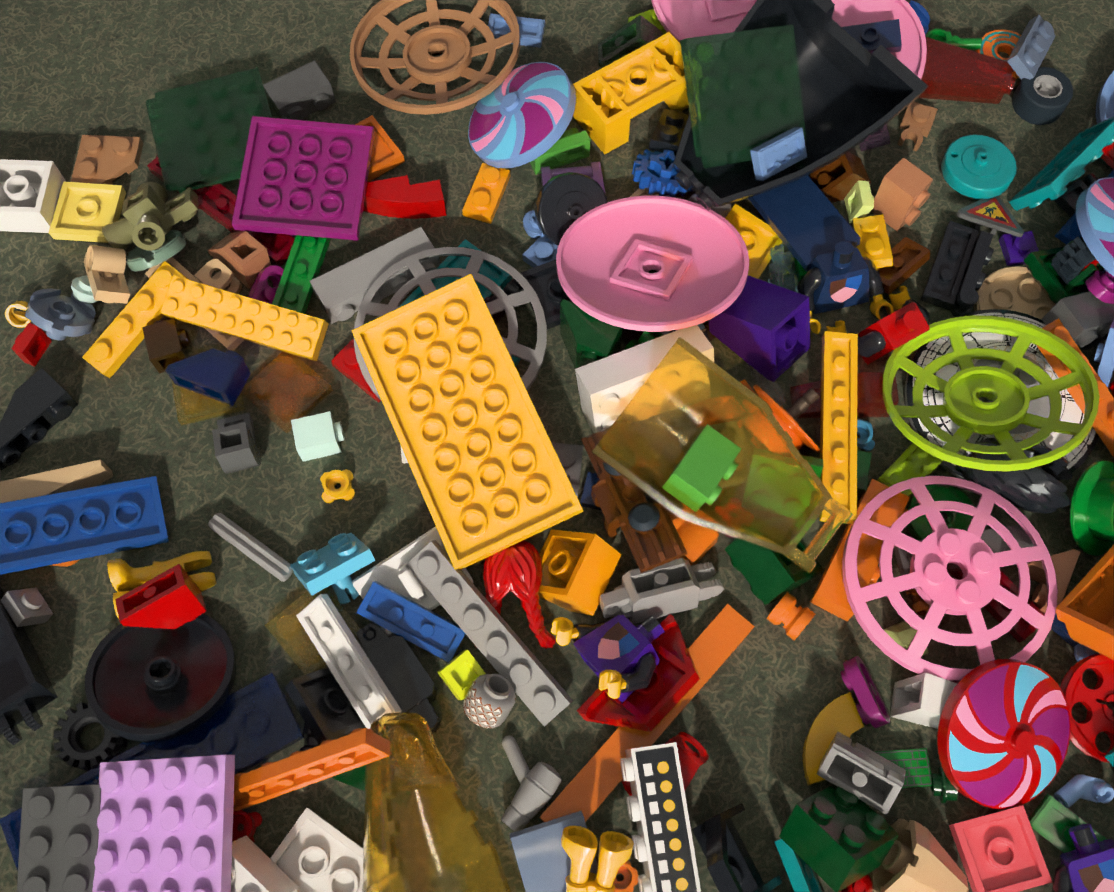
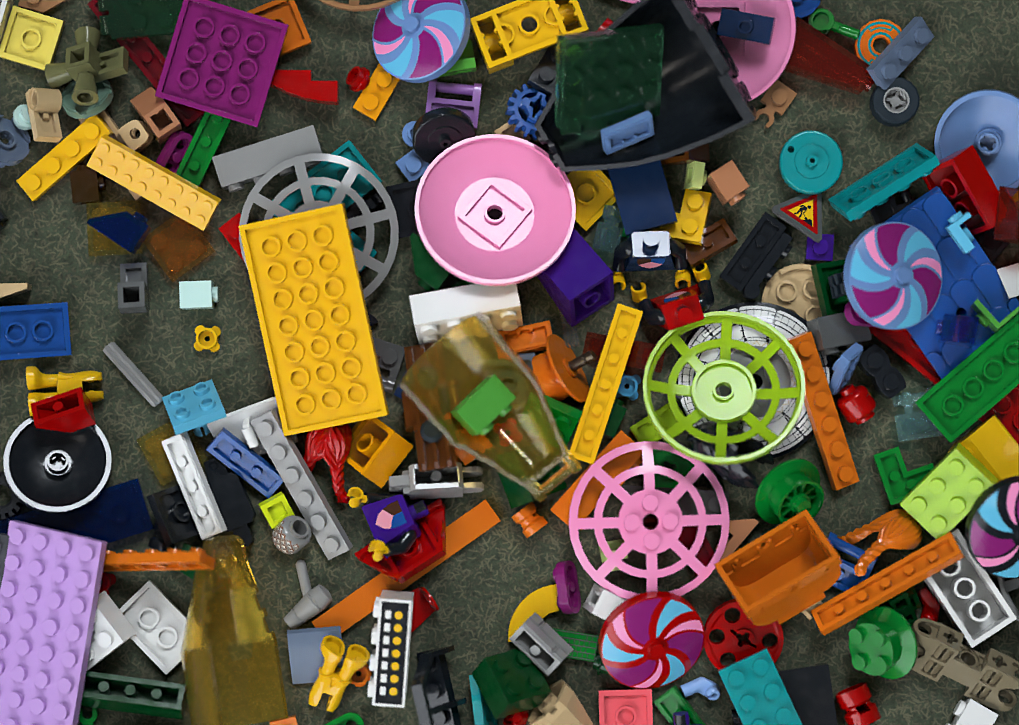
camera: 10 degrees right, 20 degrees up
(462, 181) = (358, 78): none -> red plate

